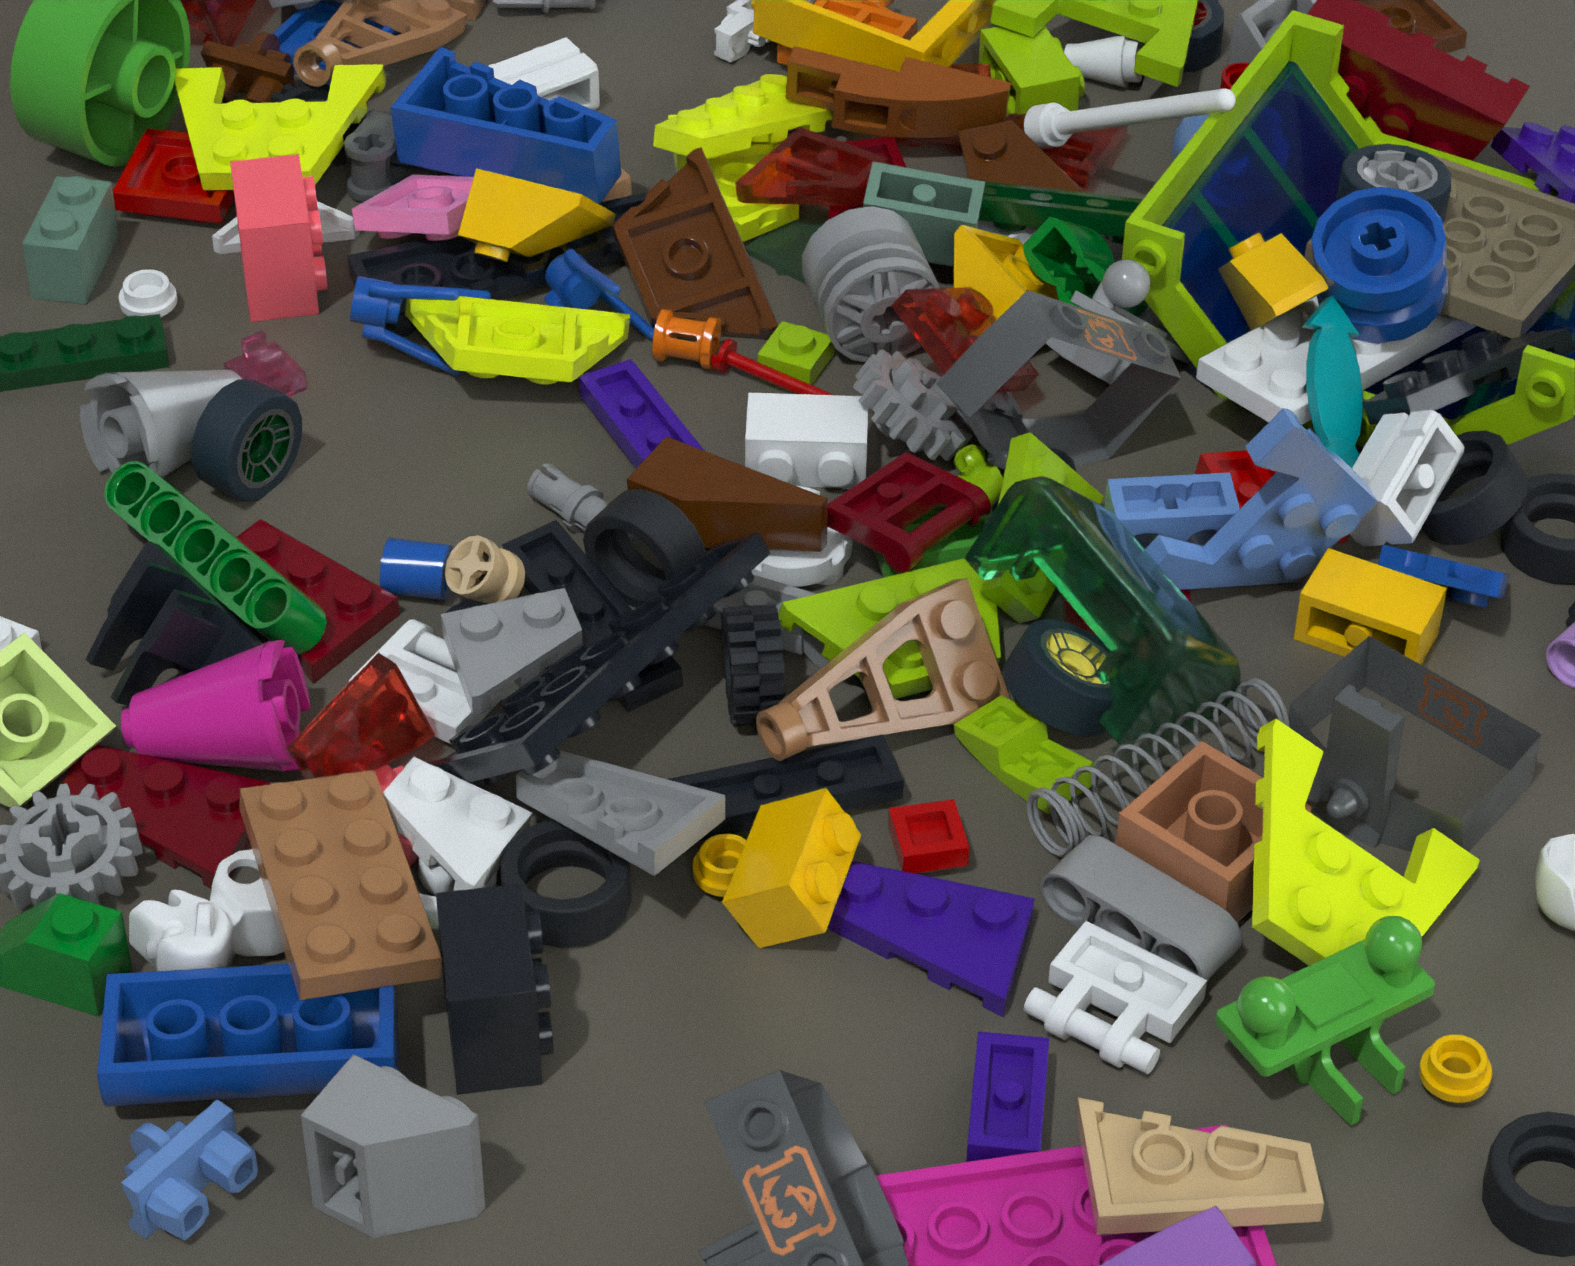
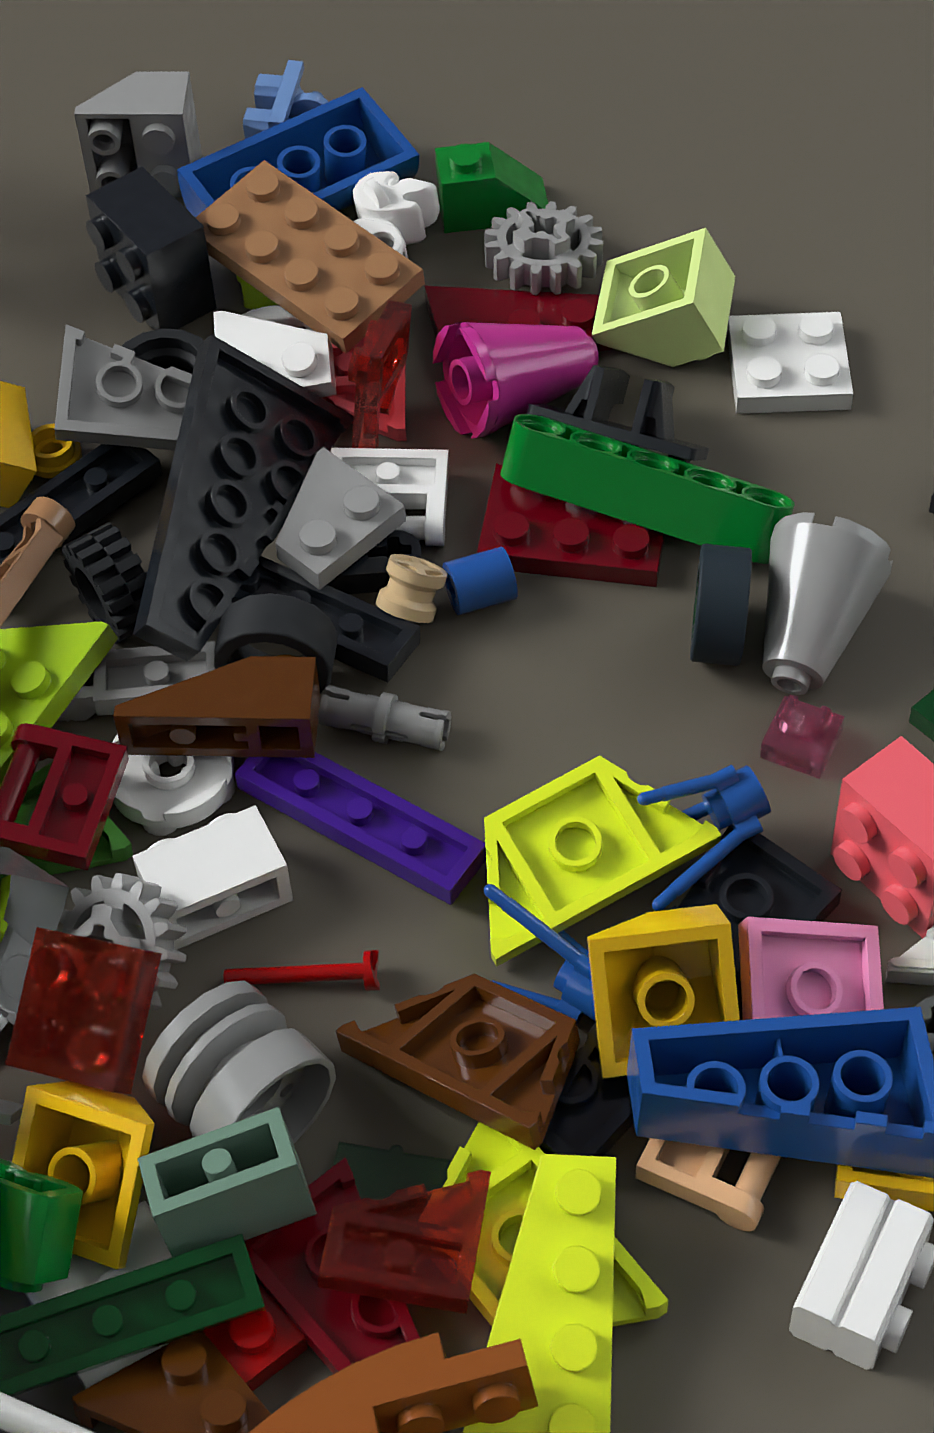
camera: 155 degrees right, 10 degrees up
(671, 327) = (418, 959): orange bush -> none
(797, 351) = (308, 1009): lime plate -> none

